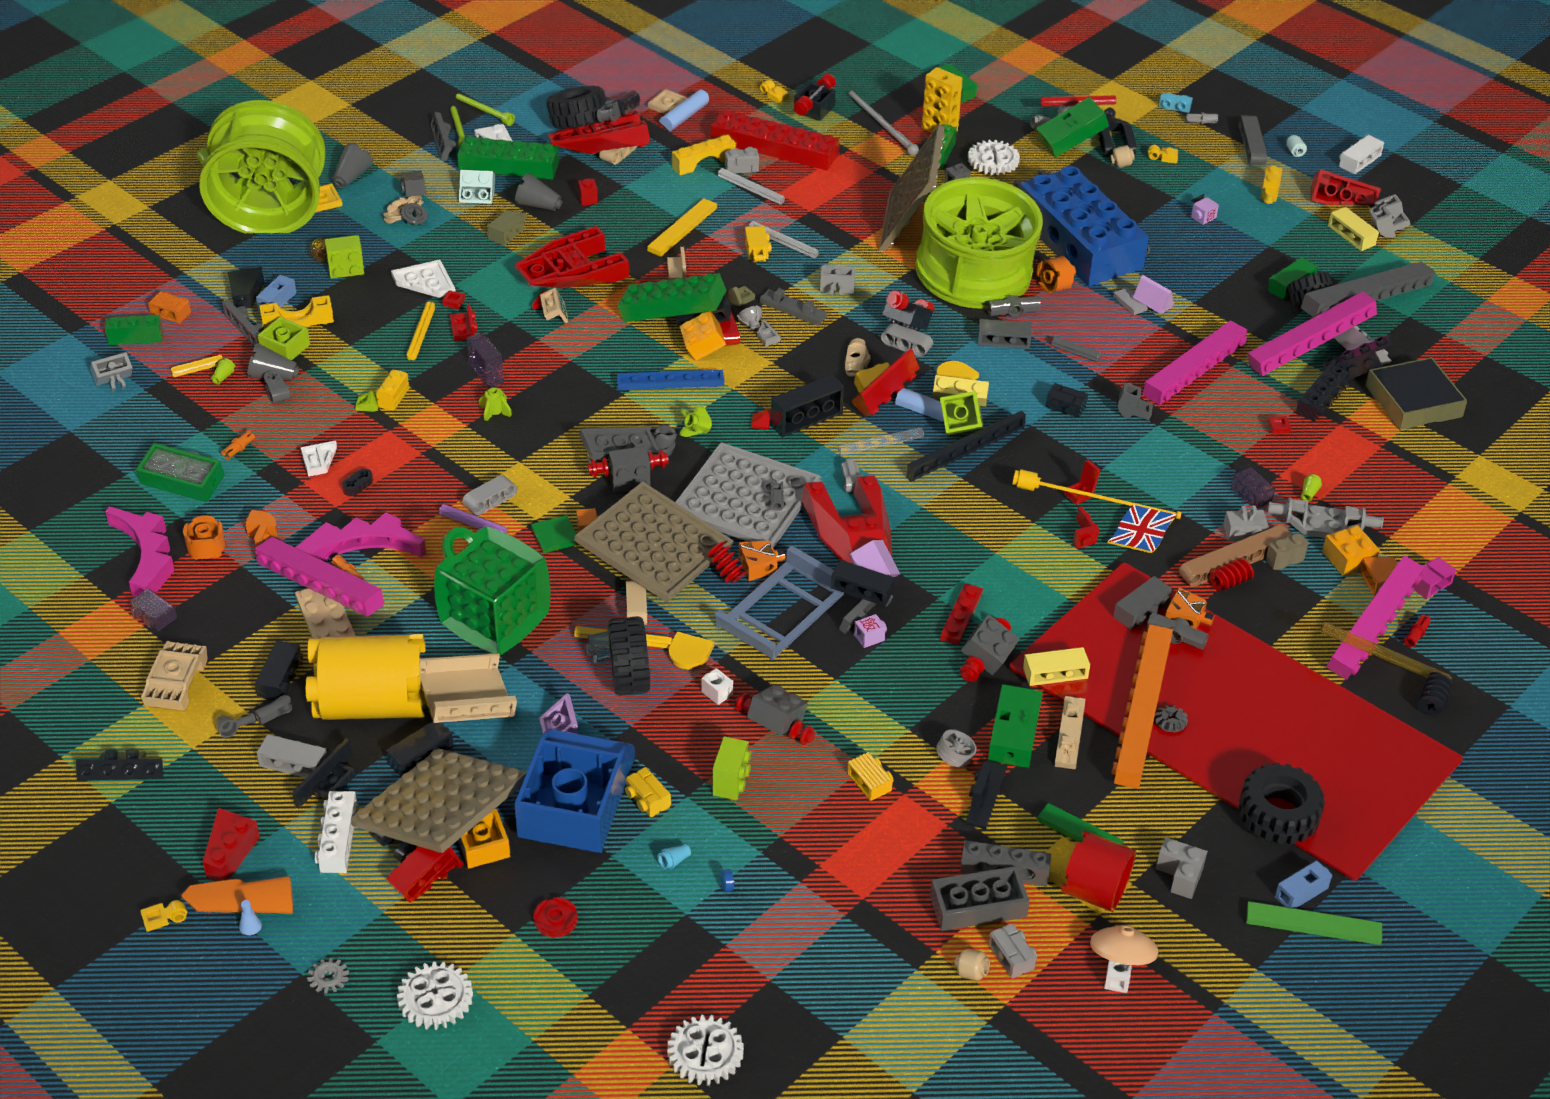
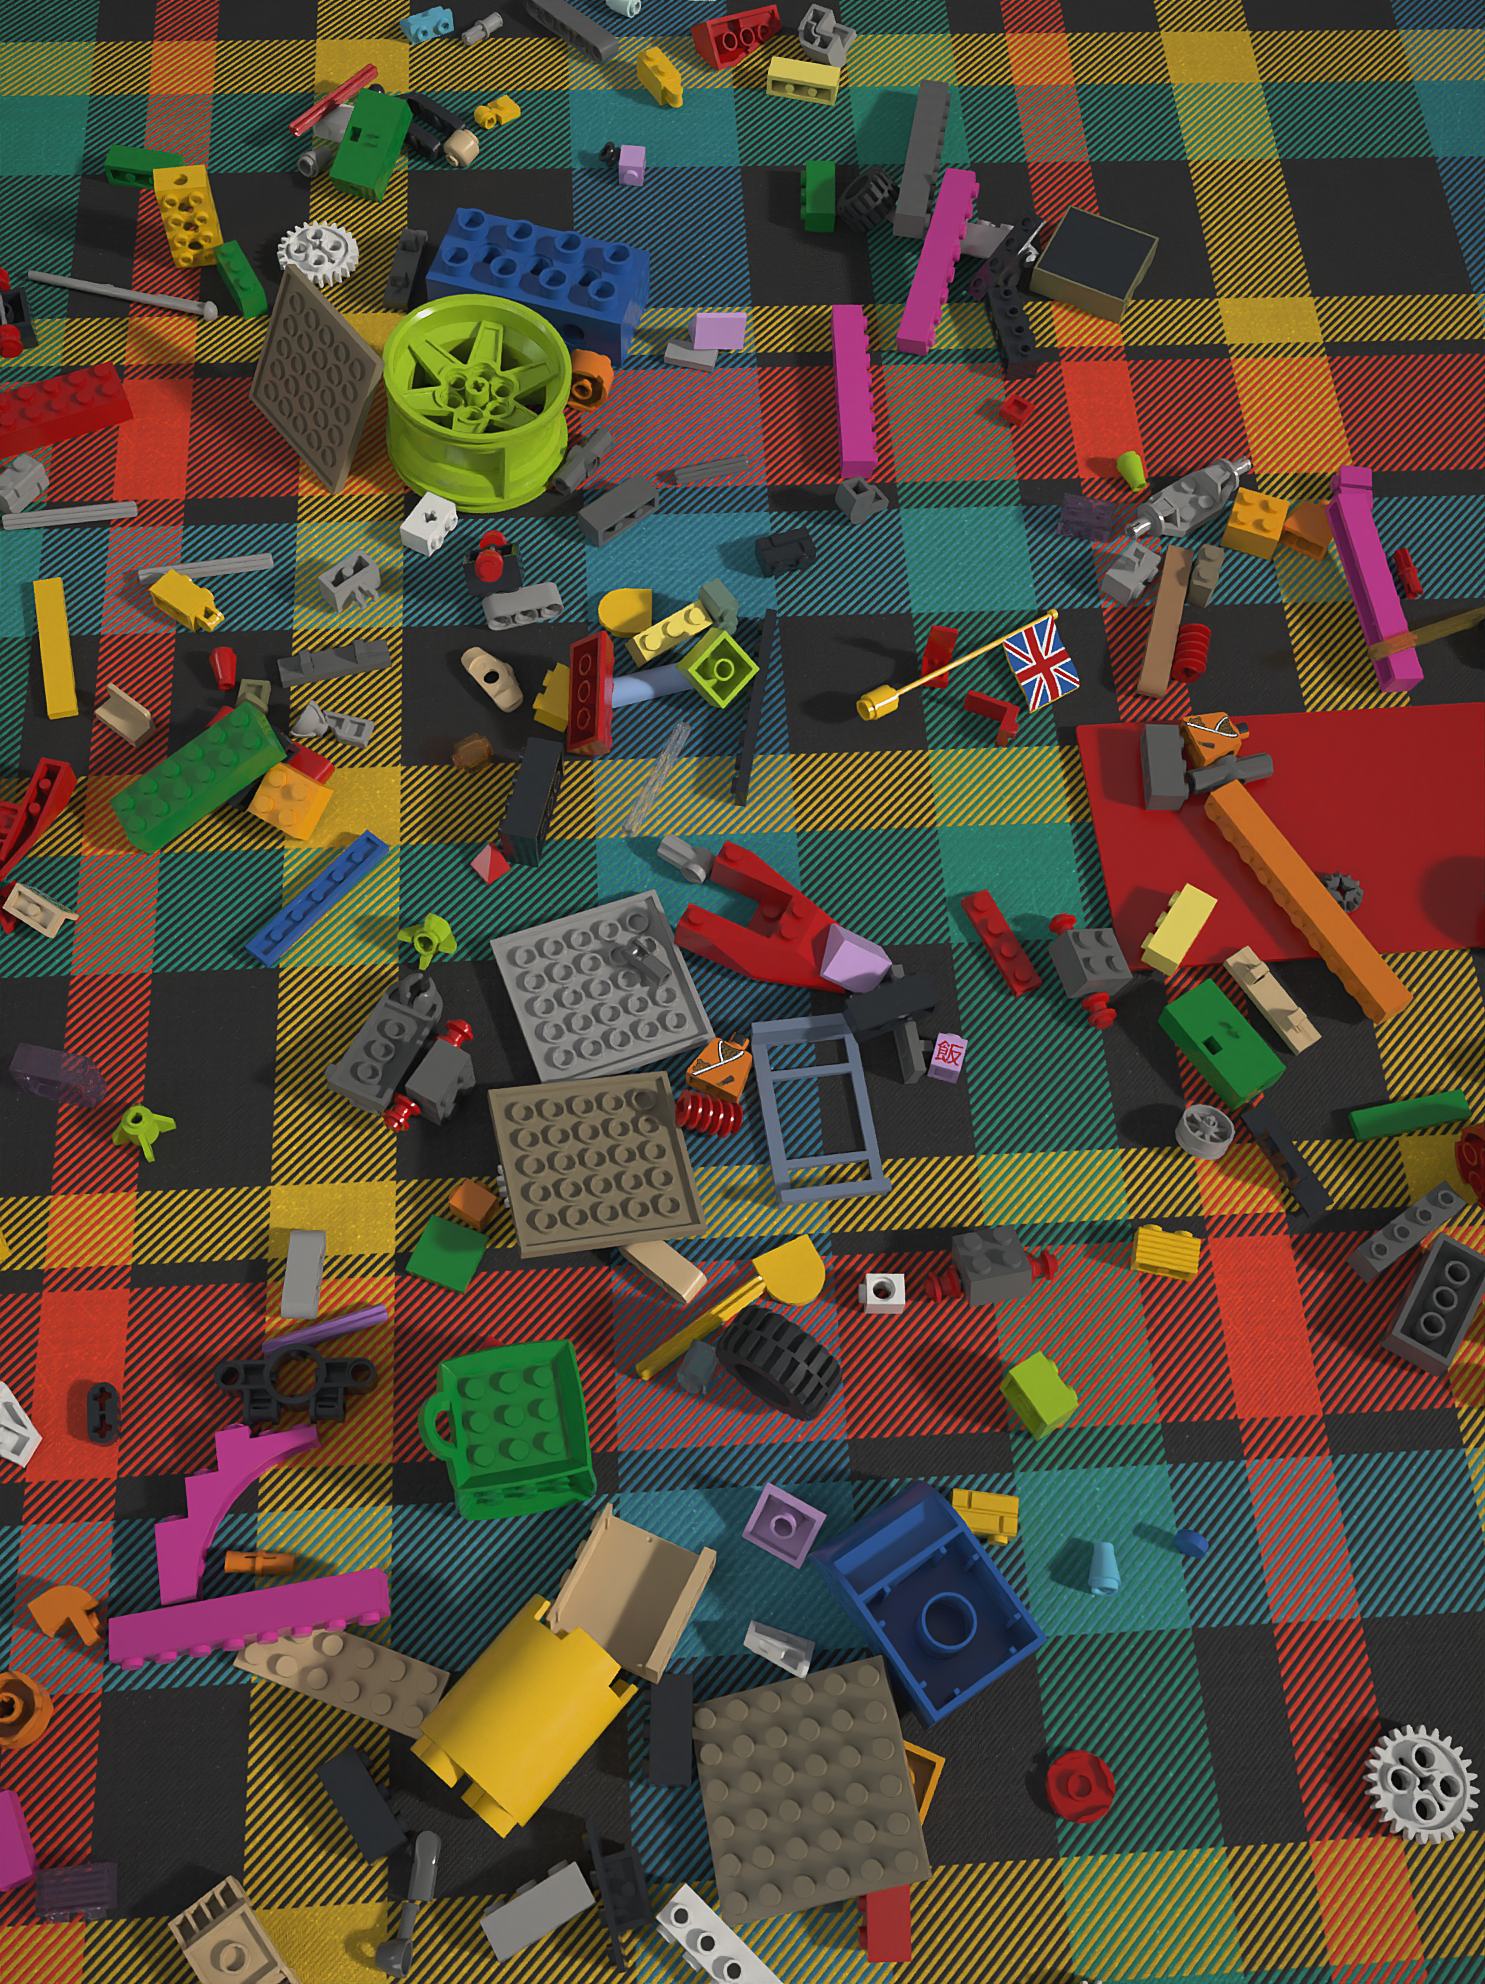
camera: 50 degrees left, 20 degrees up
(426, 513) = (324, 1401): none -> black piece
(497, 753) = (780, 1647): none -> white wing
(742, 276) = (224, 667): none -> red cone
(807, 373) = (472, 753): none -> clear orange head
(908, 282) = (428, 524): none -> white brick
(996, 395) = (720, 605): none -> sand green brick

